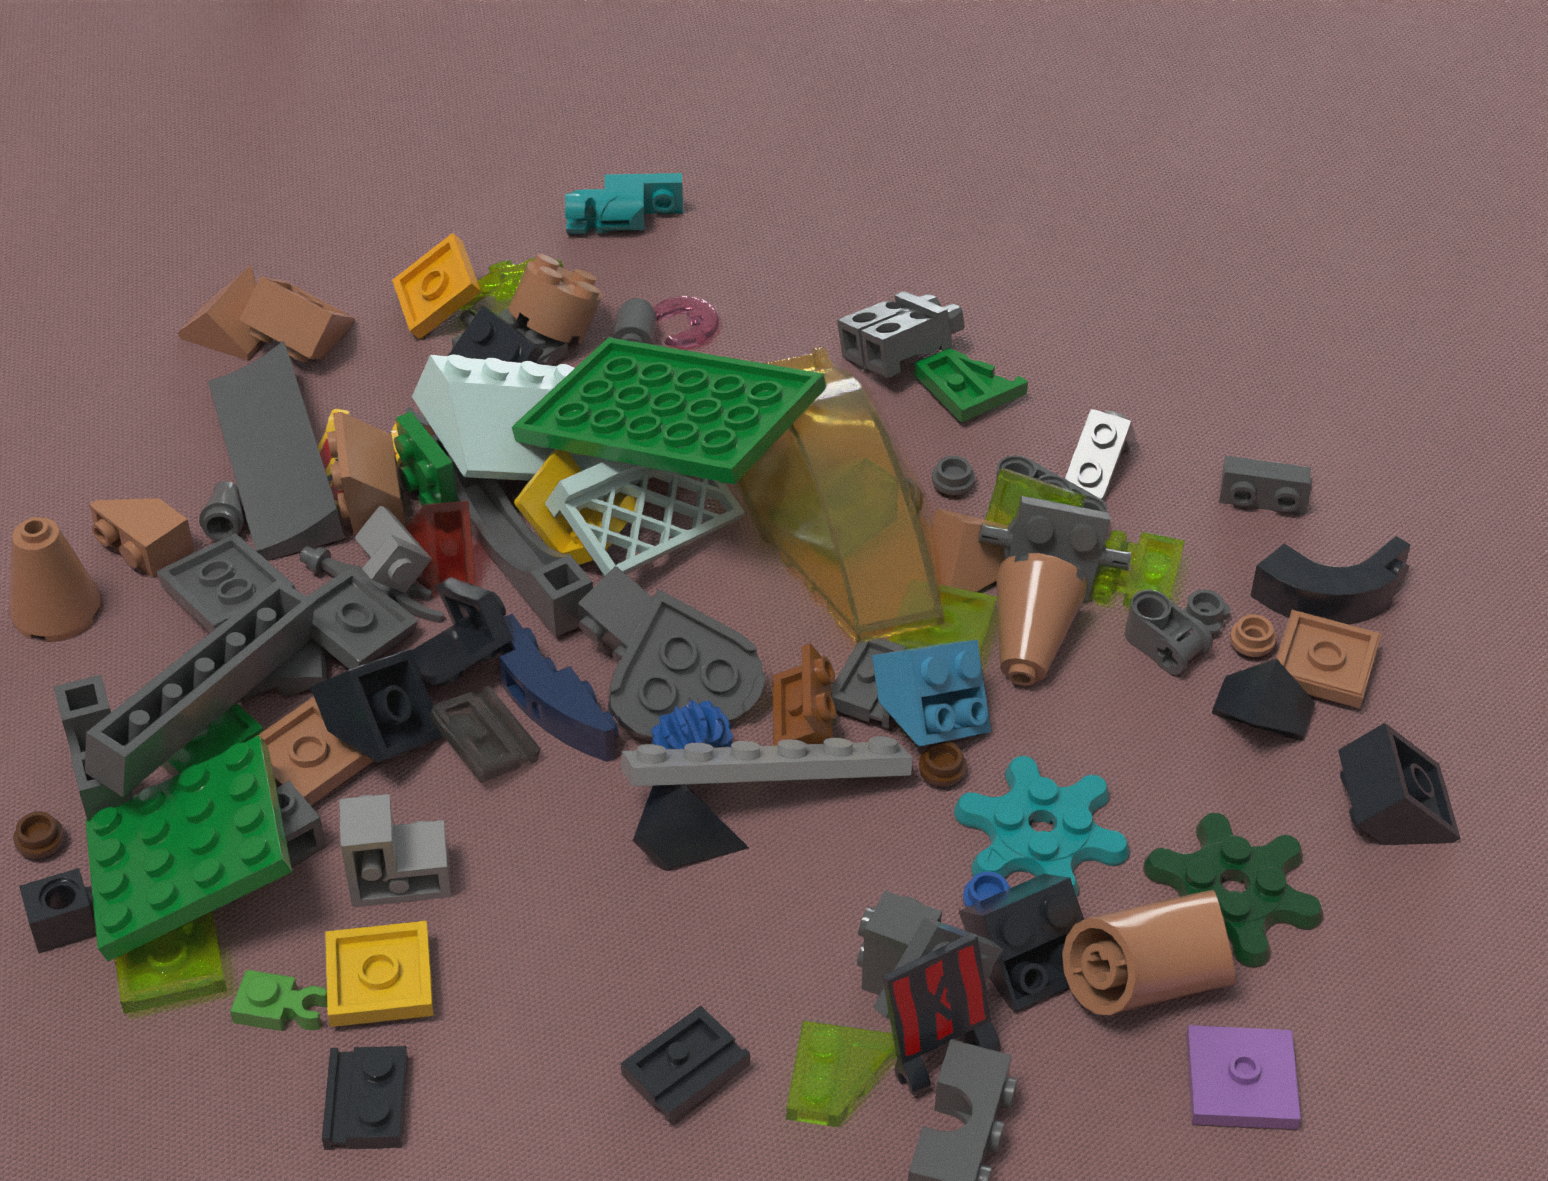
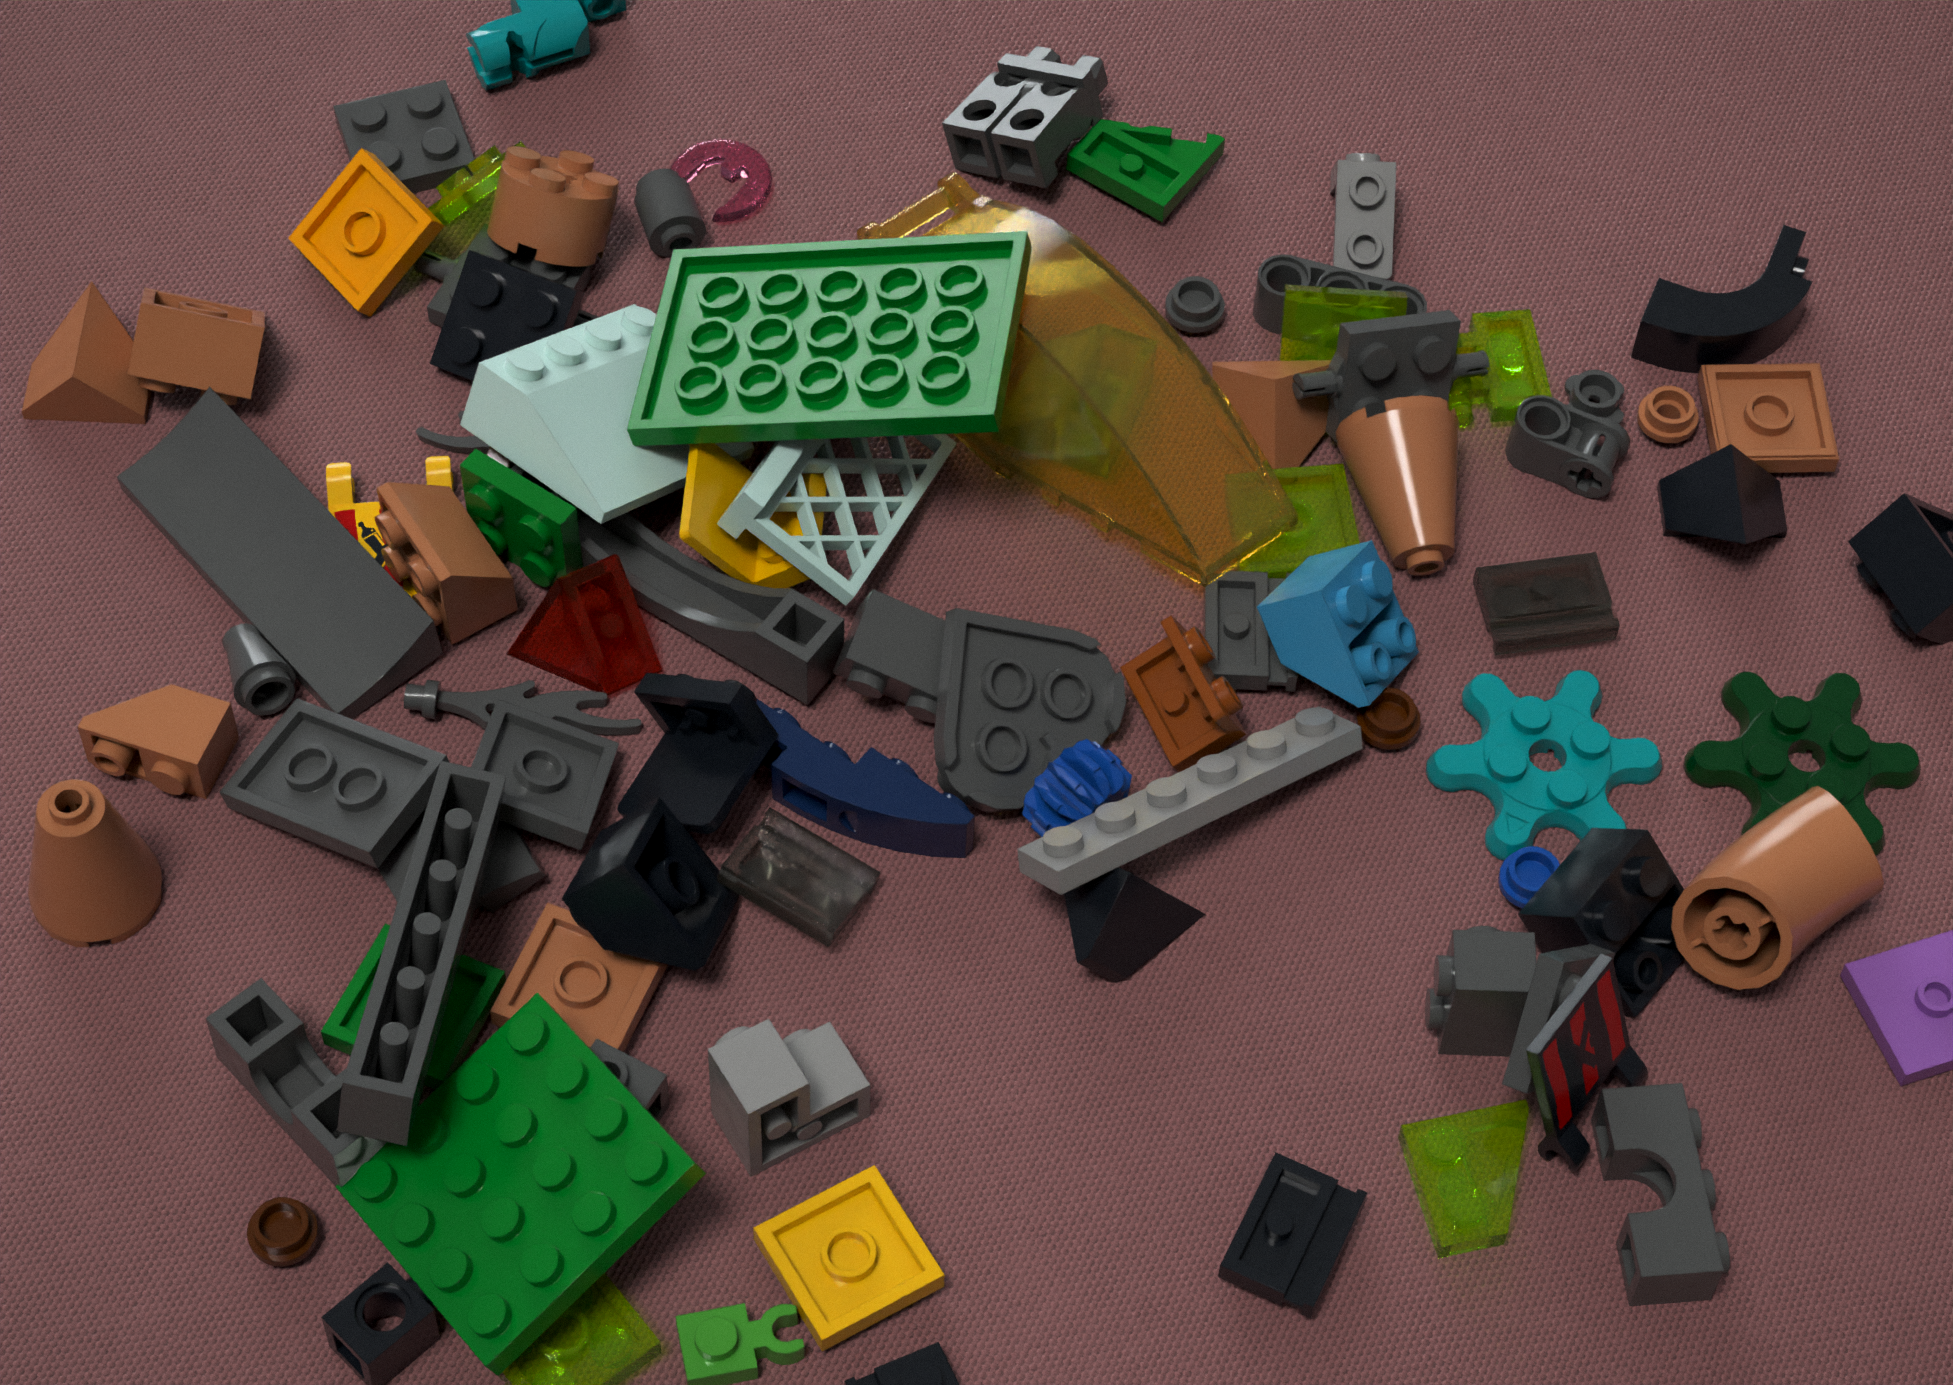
camera: 25 degrees left, 10 degrees up
(393, 551) = (533, 653): light grey bracket -> none
(499, 239) = (410, 132): none -> dark grey plate
(1095, 726) = (1545, 603): none -> clear smoke plate
(1265, 485) = (1580, 195): dark grey bracket -> none

